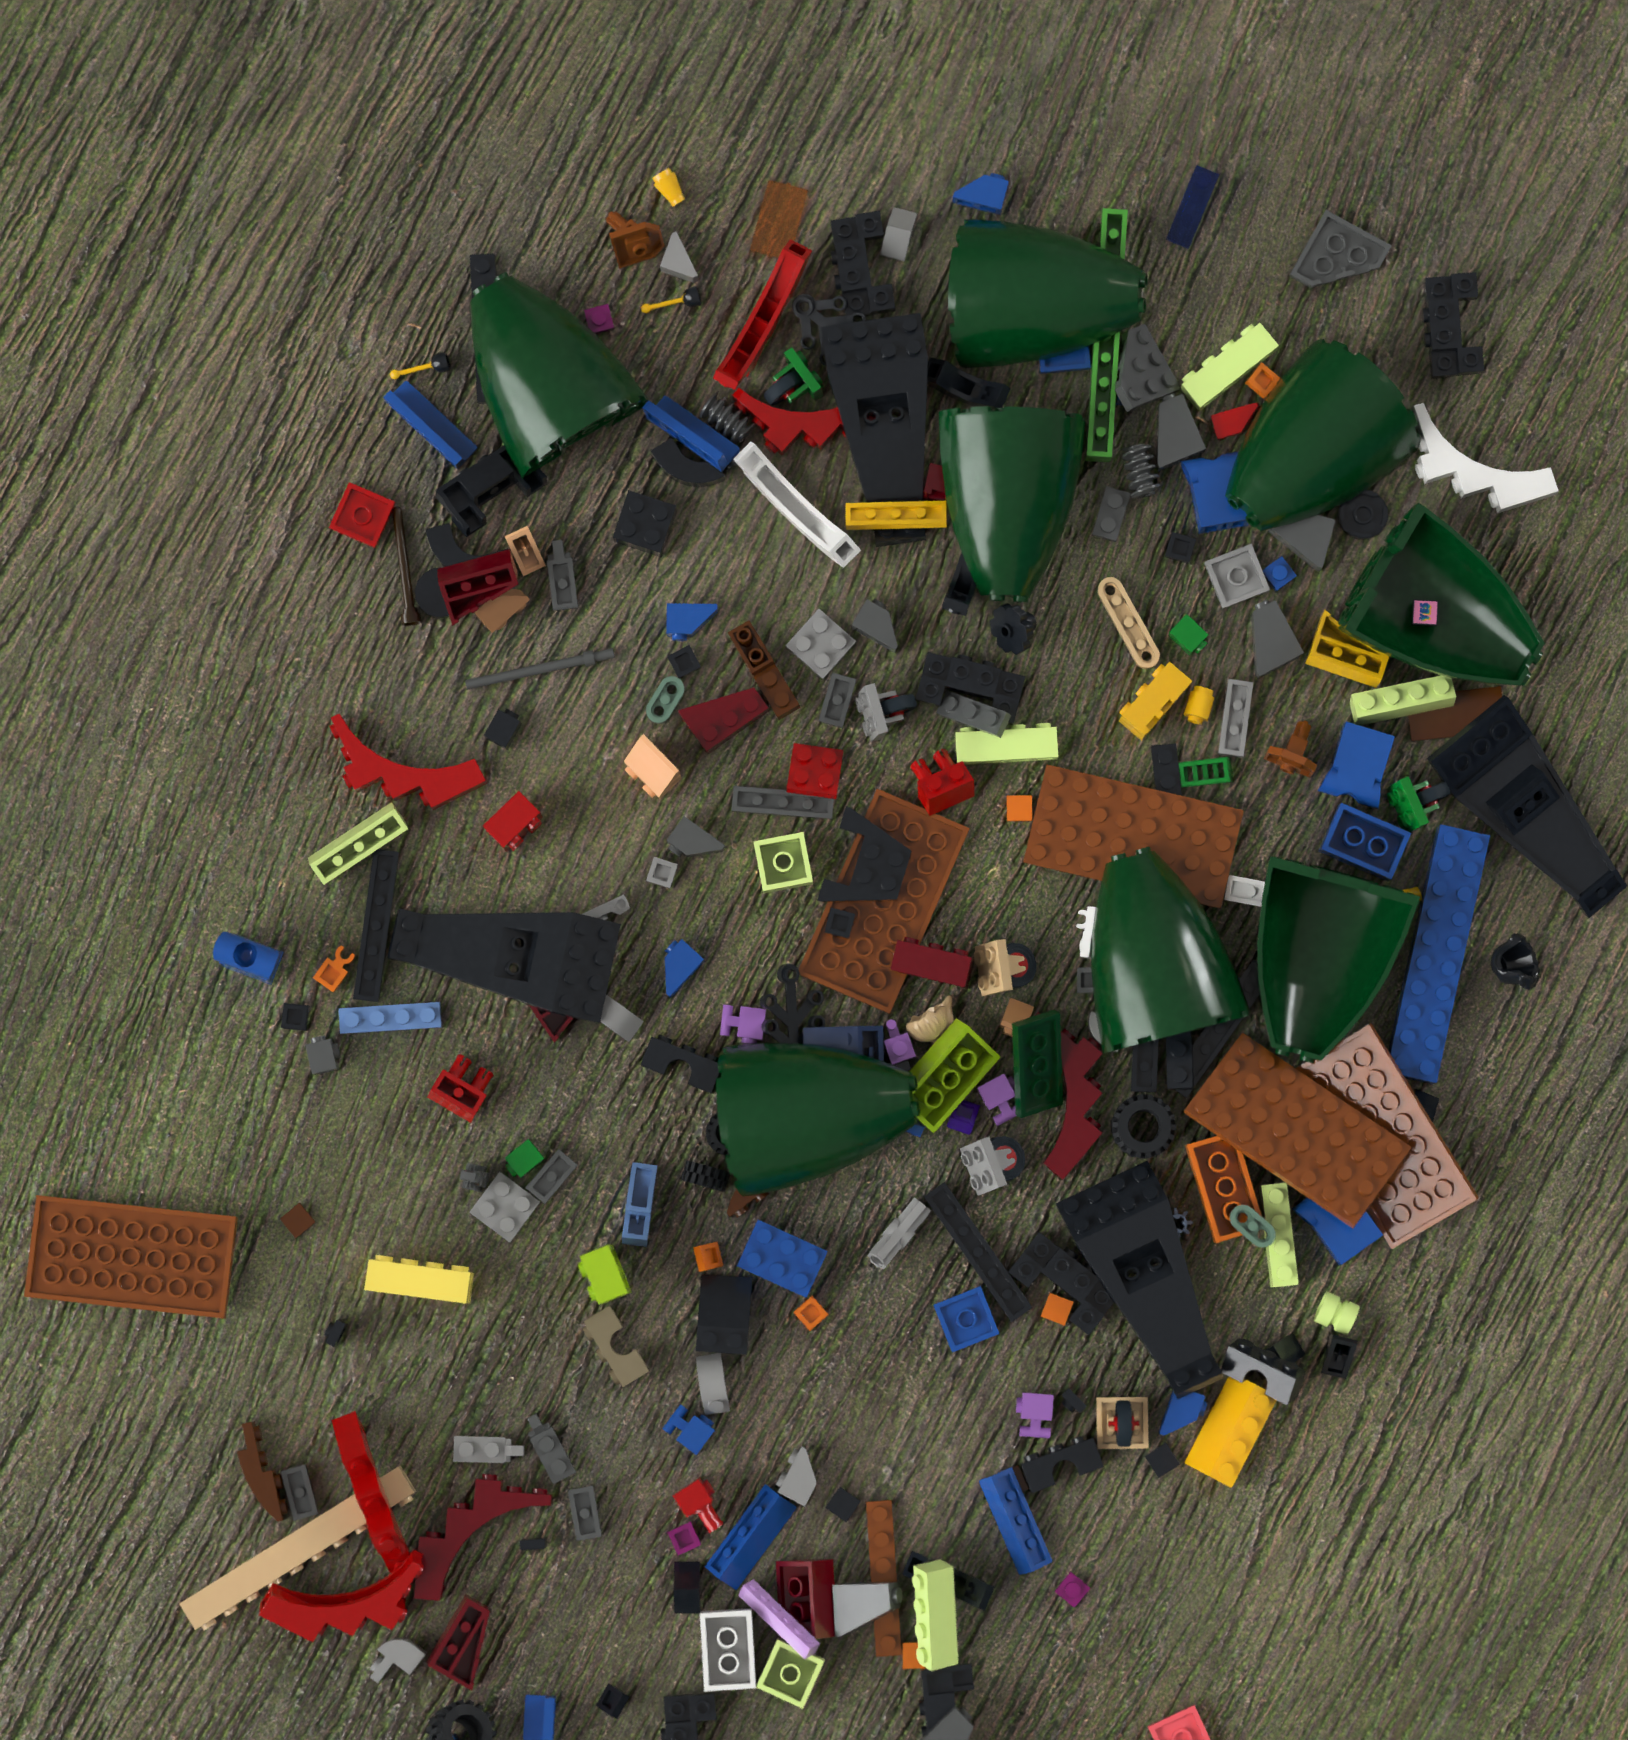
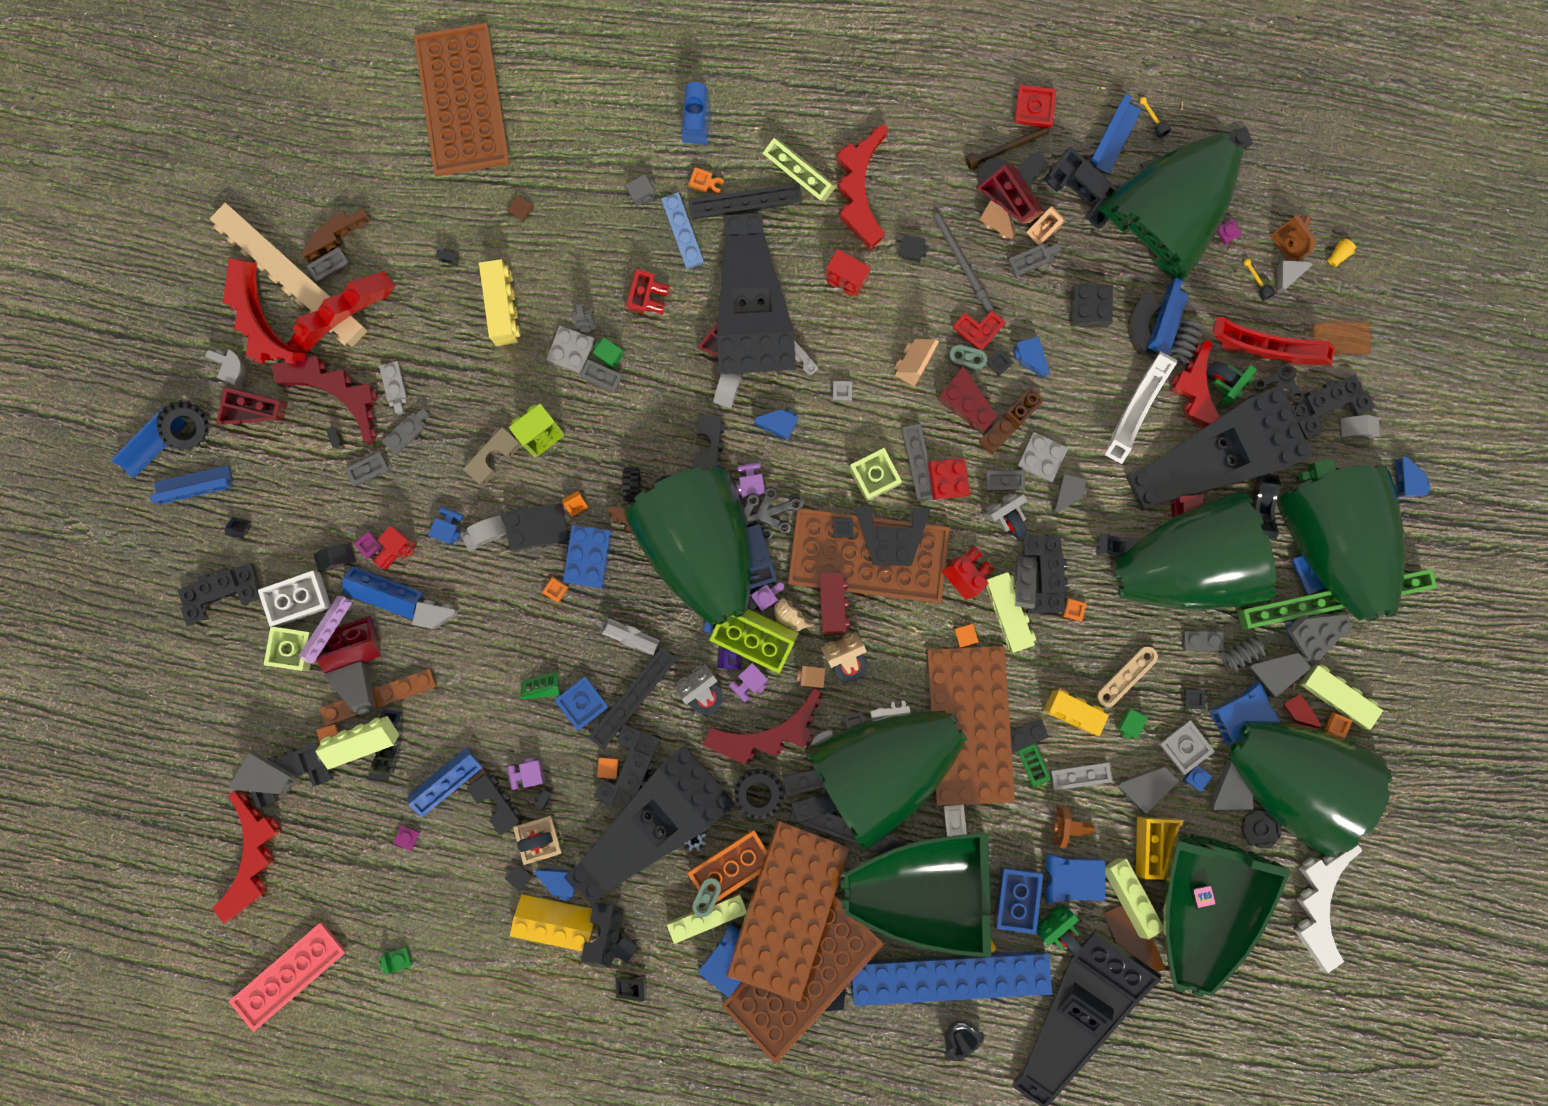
camera: 70 degrees right, 0 degrees up
(295, 1017) = (664, 164): black tile -> none
(639, 678) = (979, 334): none -> red plate
(639, 1204) = (598, 444): medium blue slope -> none
(692, 840) = (871, 405): dark grey slope -> none
(843, 1504) = (423, 652): black tile -> none
(896, 515) = (1154, 483): yellow plate -> none
(922, 1364) = (549, 679): none -> green slope
(939, 305) = (1317, 470): none -> green brick
(1013, 628) = (1097, 592): black plant -> none
(1026, 663) = (1074, 609): none -> orange tile
(1037, 1063) = (782, 702): dark green plate -> none
(1192, 206) = (1452, 636): clear blue slope -> none
(1199, 705) = (1082, 746): yellow brick -> none
(1222, 1644) = (395, 960): none -> green bracket
(1335, 1312) = (661, 977): yellowish green wheel -> none
(1338, 252) = (1452, 753): dark grey plate -> none
(1444, 326) = (1423, 849): black bracket -> none

